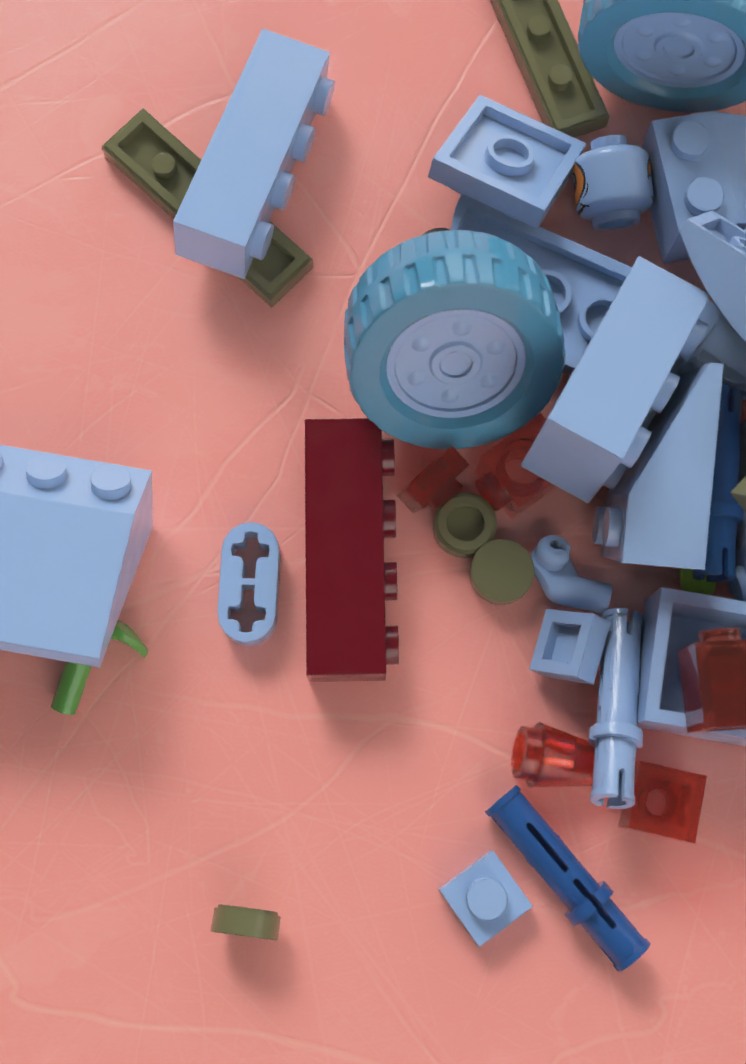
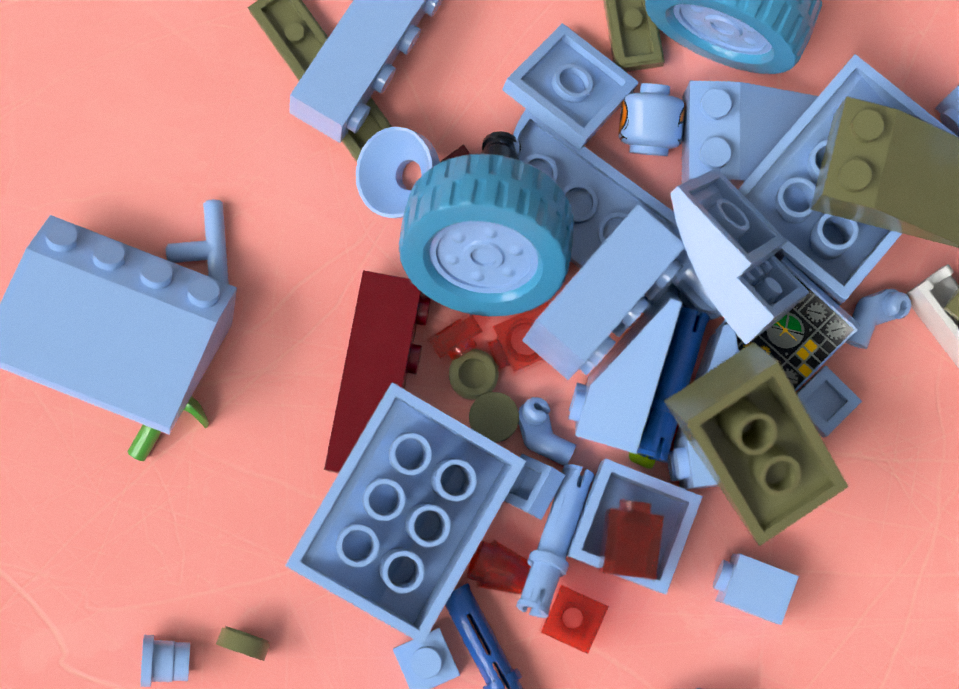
camera: 10 degrees right, 5 degrees up
(113, 434) = (211, 249): none -> light blue piece
(147, 968) = (164, 661): none -> light blue piece
(233, 583) = (285, 384): light blue beam -> none
(301, 294) = (382, 166): none -> light blue piece
(424, 709) = (406, 513): none -> light blue slope

